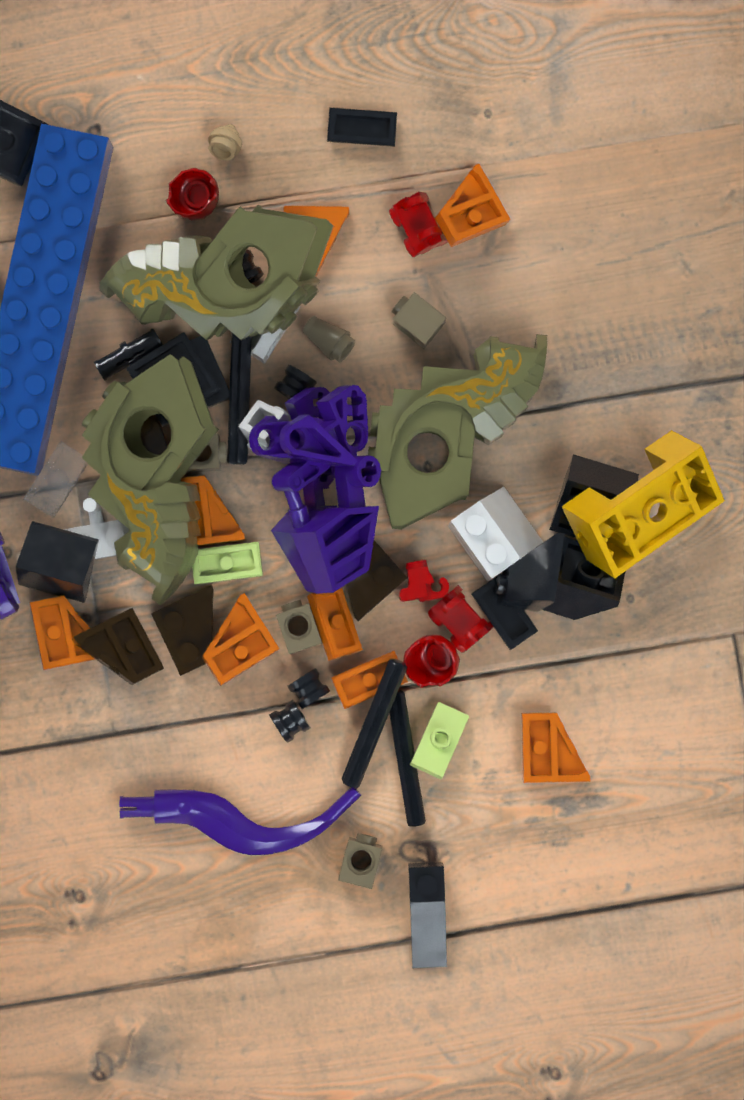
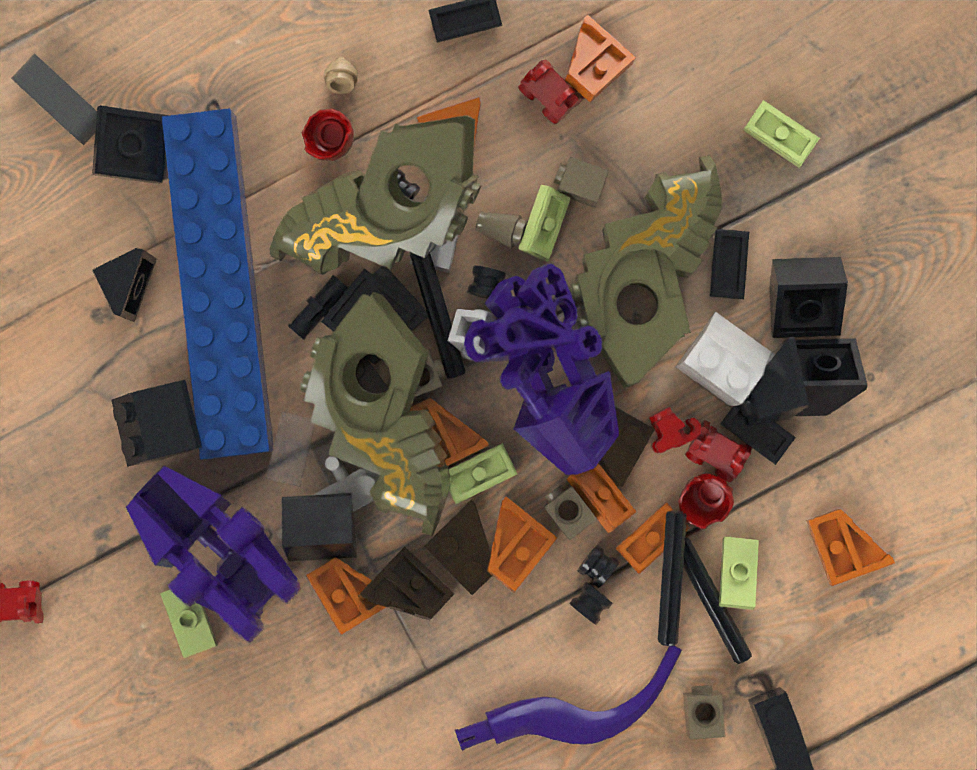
camera: 15 degrees left, 0 degrees up
(369, 347) = (544, 223): none -> yellowish green plate
(532, 445) = (729, 264): none -> black tile
(619, 530) = (847, 316): yellow plate -> none
(623, 338) = (781, 134): none -> yellowish green plate

